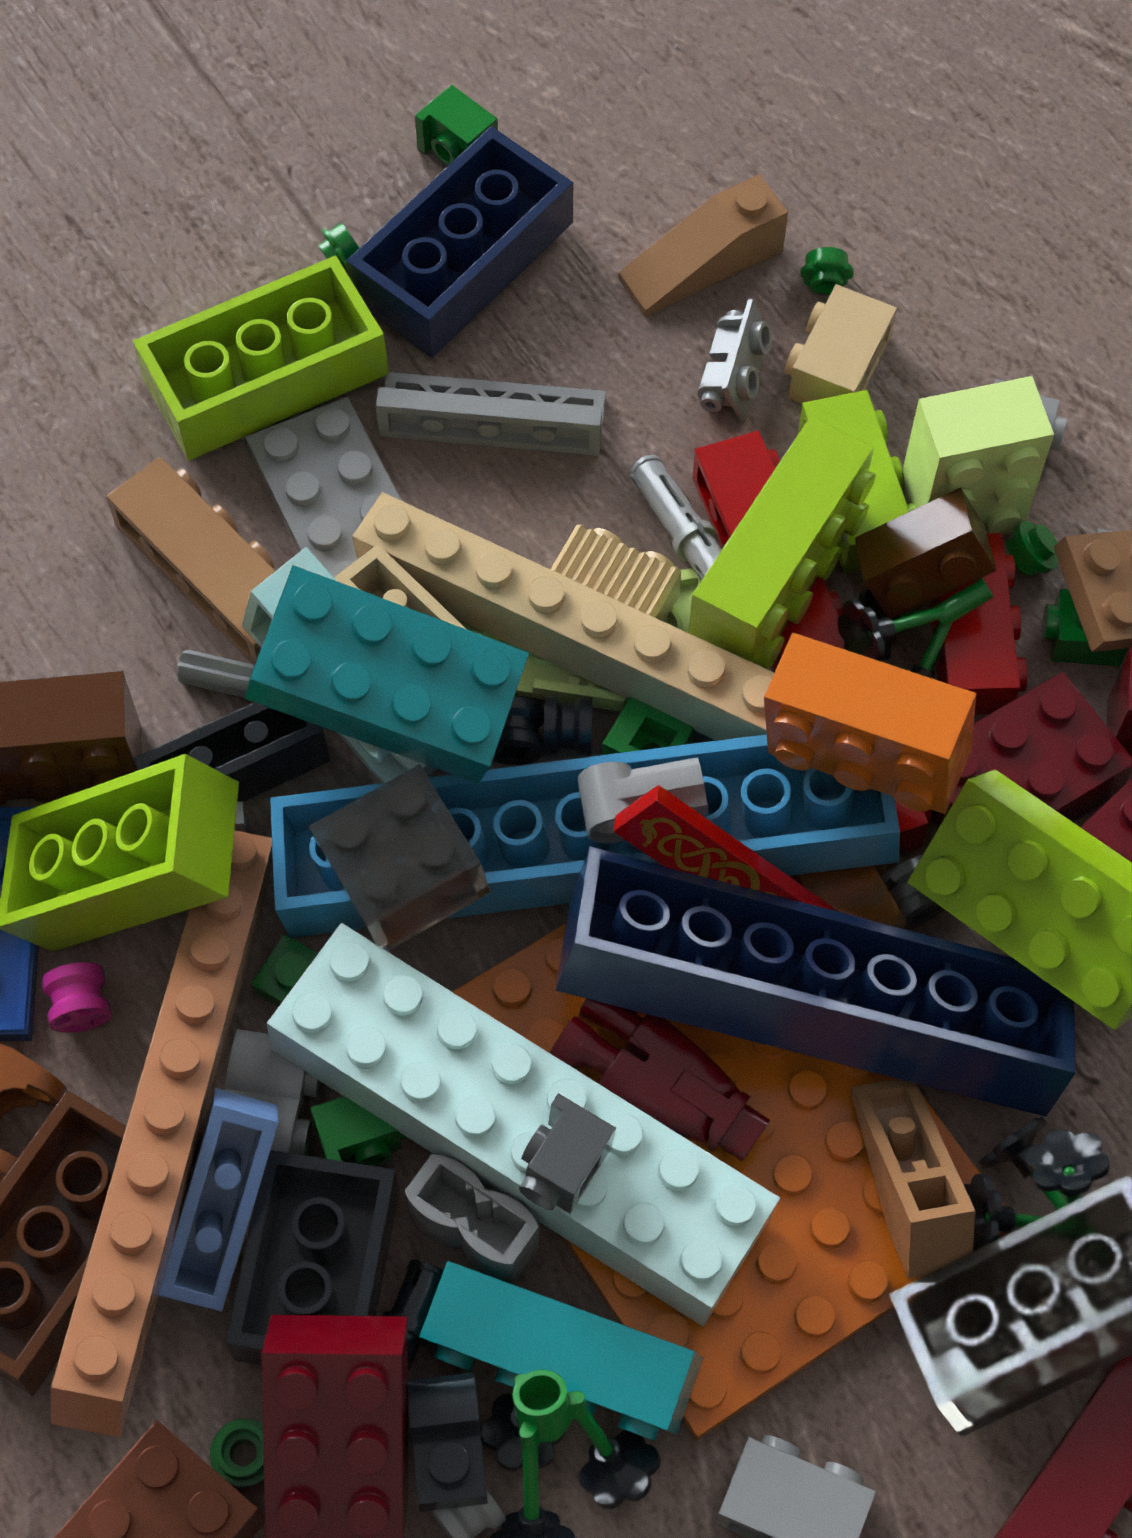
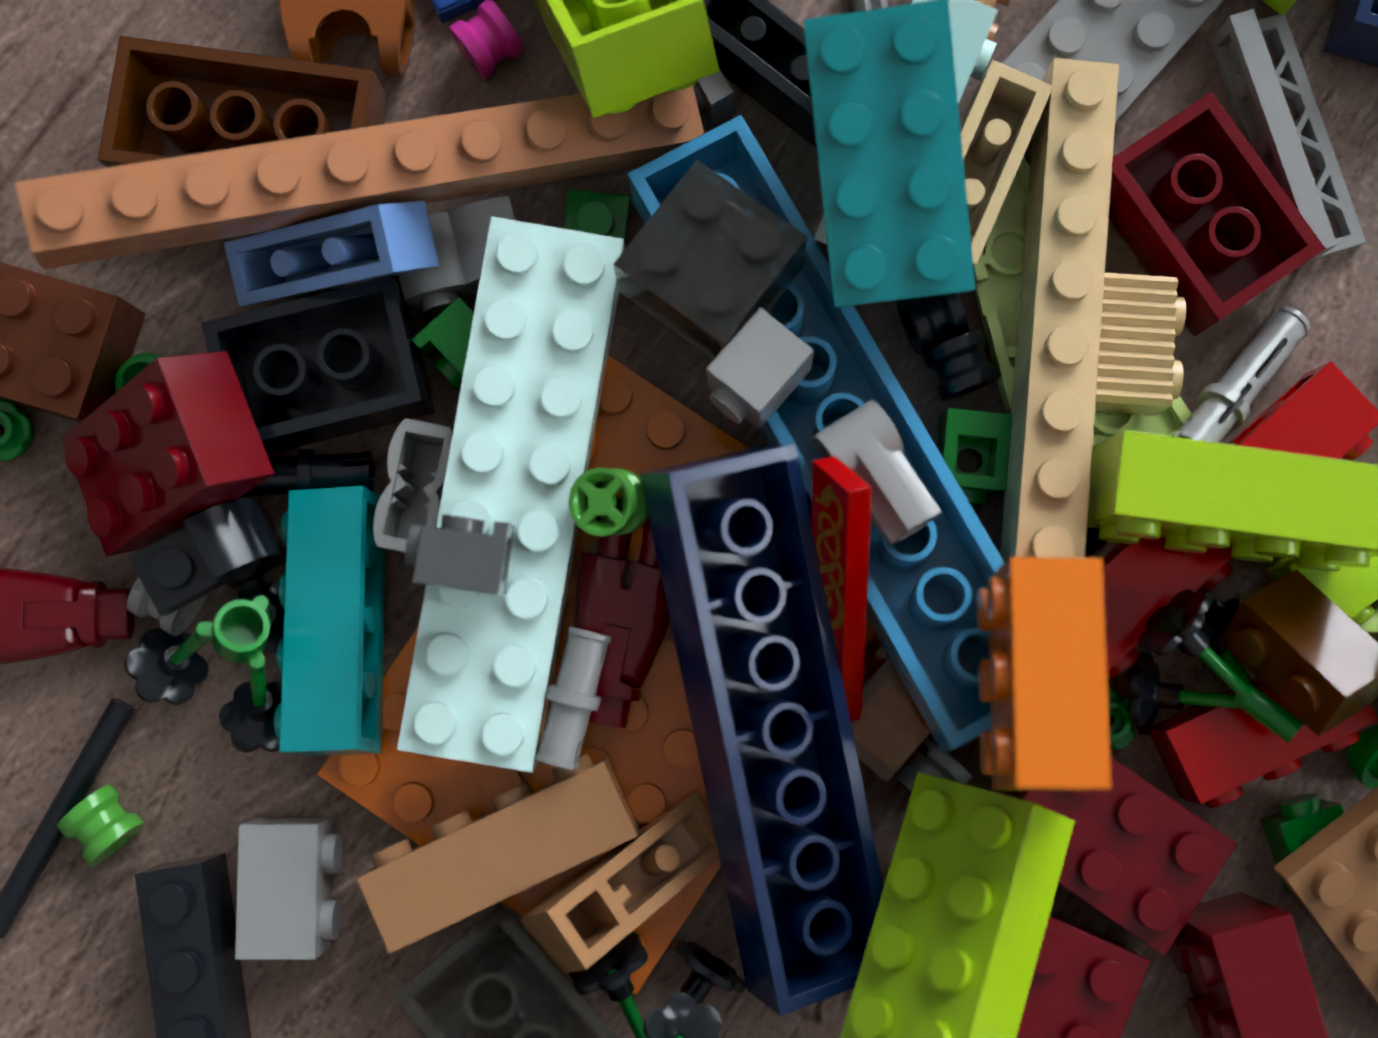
camera: 70 degrees right, 20 degrees up
(511, 856) = (758, 370): none -> light grey brick
(532, 484) = (1207, 212): none -> dark red brick
(565, 1017) = (594, 502): none -> bright green wheel
(727, 1135) = (573, 698): none -> light grey pin
(840, 1275) = (496, 854): none -> medium nougat brick

